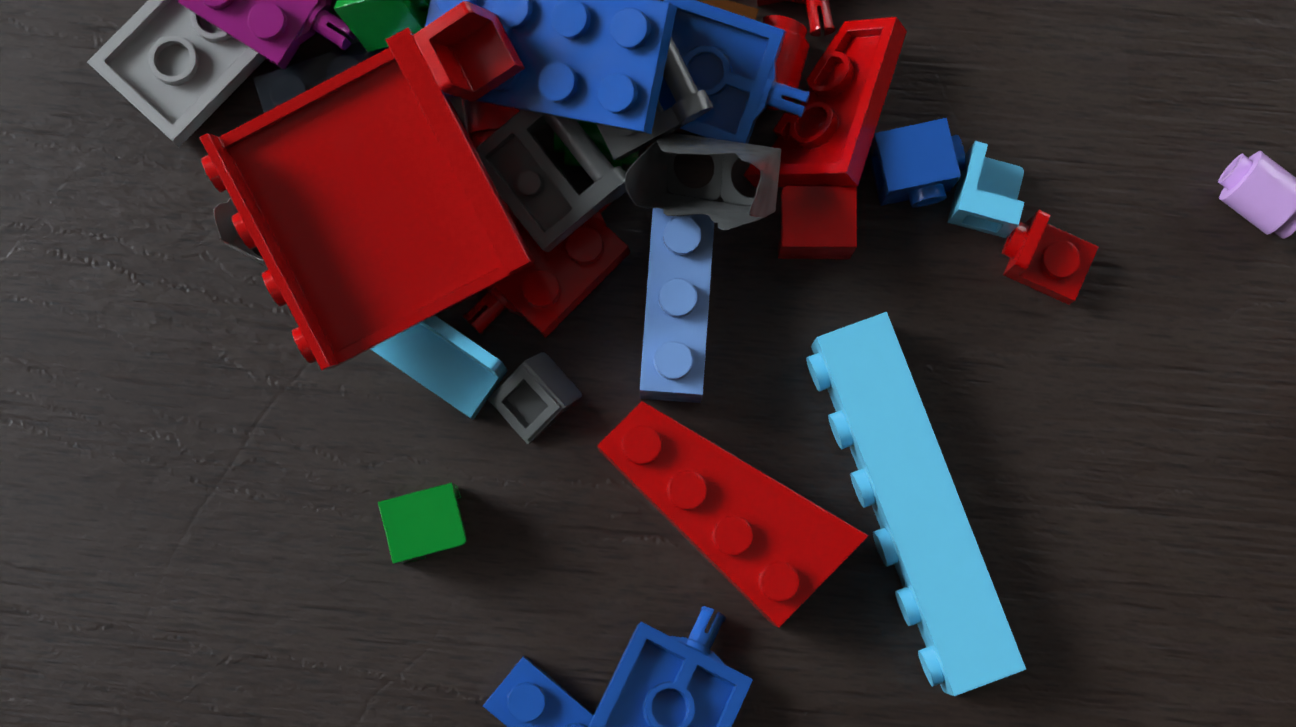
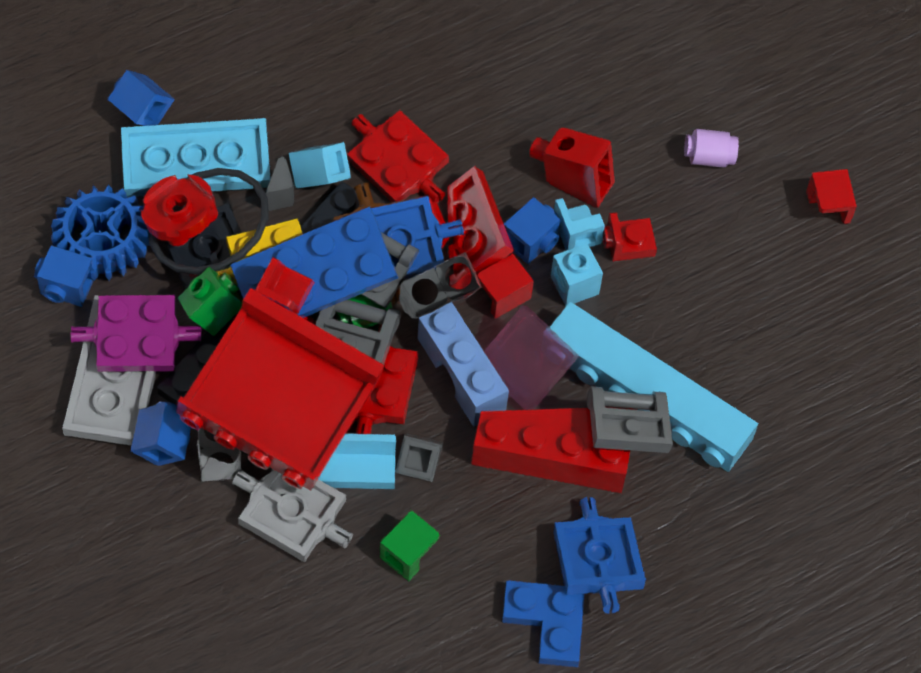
camera: 40 degrees left, 20 degrees down
(182, 149) = (160, 434): none -> blue brick
(298, 396) = (291, 516): none -> light grey plate
(771, 355) = (529, 357): none -> clear pink tile
(827, 573) = (630, 428): none -> dark grey plate
(930, 270) = (576, 274): none -> medium azure brick
(1047, 101) = (577, 164): none -> red torso

